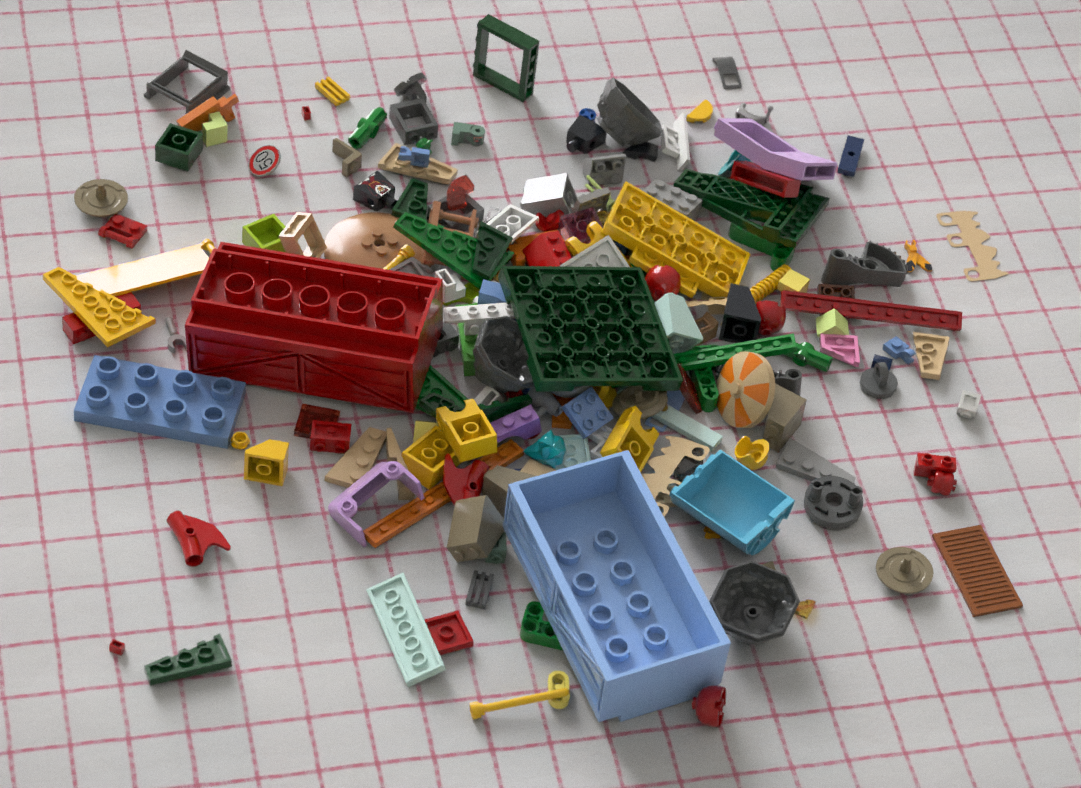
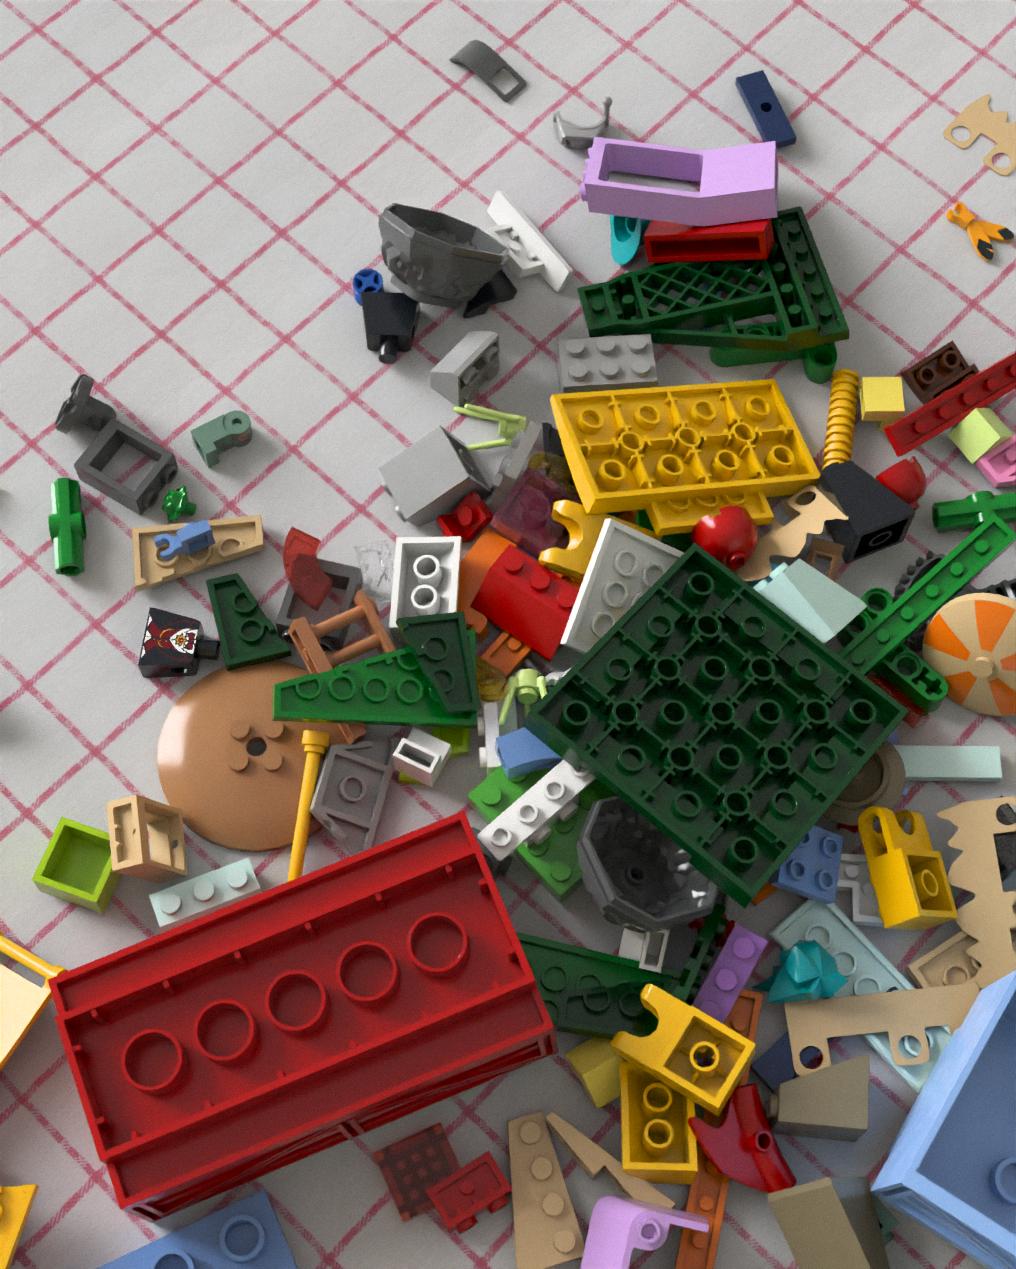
camera: 30 degrees left, 20 degrees up
(174, 337) = (70, 1162): light grey piece -> none
(352, 157) = (89, 598): dark tan bracket -> none
(515, 37) = (187, 235): dark green window -> none
(702, 112) = (513, 166): yellow tile -> none
(869, 269) = (947, 295): dark grey arm -> none

